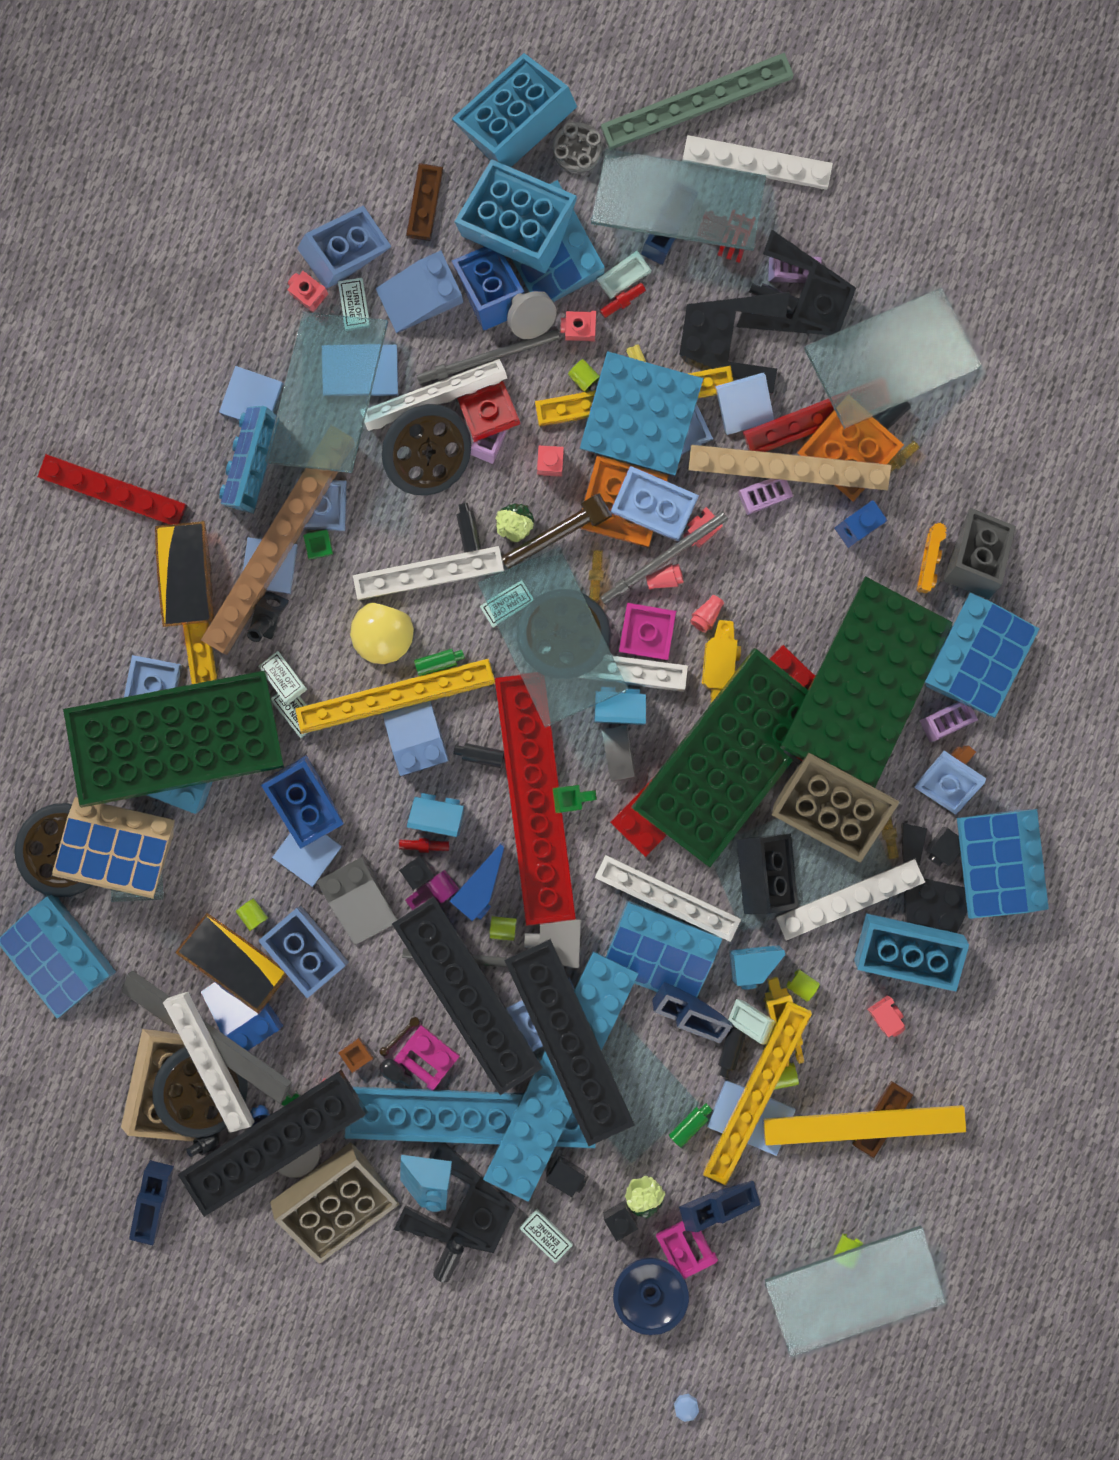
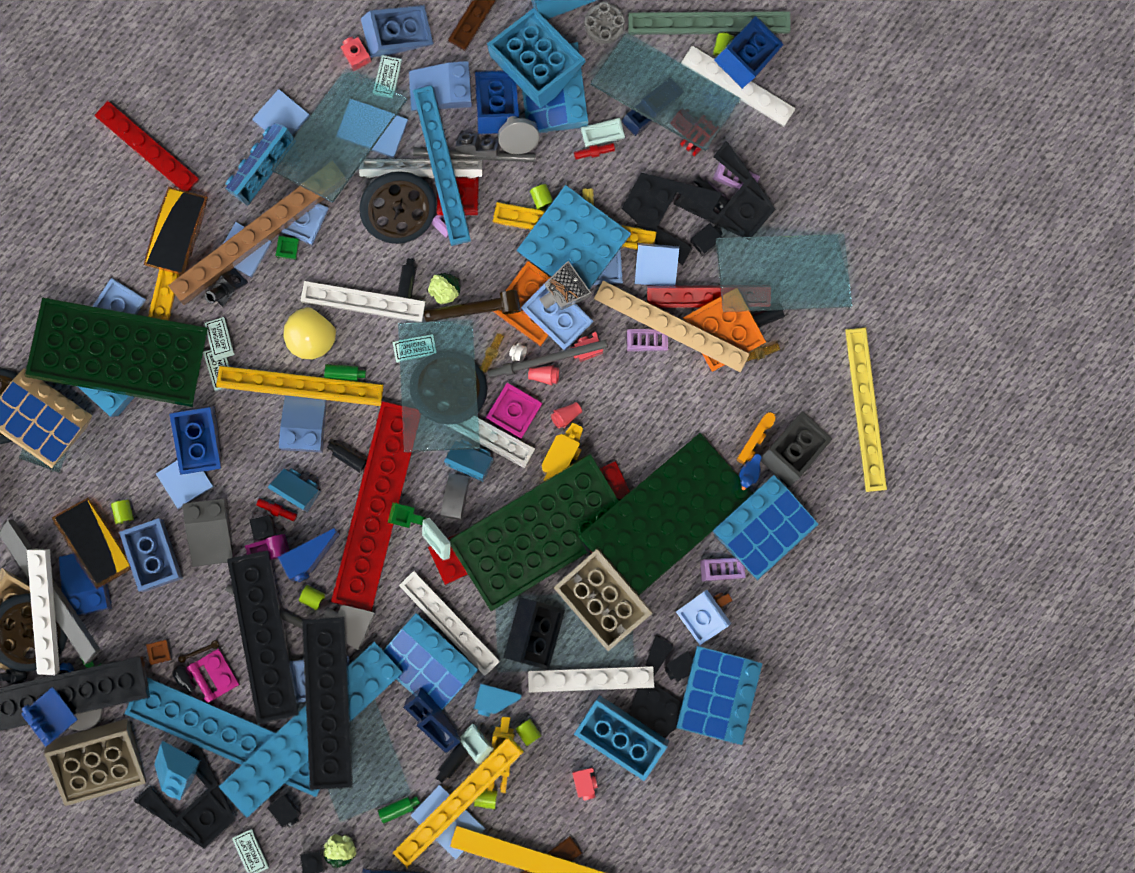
camera: 20 degrees right, 5 degrees down
(263, 1176) = (49, 716): none -> blue hinge
(448, 1260) = (167, 840): black cylinder -> none
(457, 382) = (441, 165): none -> dark azure tile
(481, 346) = (472, 145): none -> flat silver slope
(550, 460) = (490, 251): coral brick -> none
(585, 332) = (556, 164): coral brick -> none
(617, 810) = (436, 539): none -> light aqua tile
(626, 563) = (518, 352): none -> white plate
(654, 470) = (565, 288): none -> torso
(724, 121) = (721, 42): none -> lime beam
(757, 117) = (748, 52): none -> blue slope
(790, 352) = (705, 239): none -> black brick
(860, 523) = (711, 390): blue torso -> none
(889, 834) = (642, 640): clear yellow bar -> none
(940, 599) = (750, 472): none -> blue animal
(1041, 478) = (865, 409): none -> light yellow tile

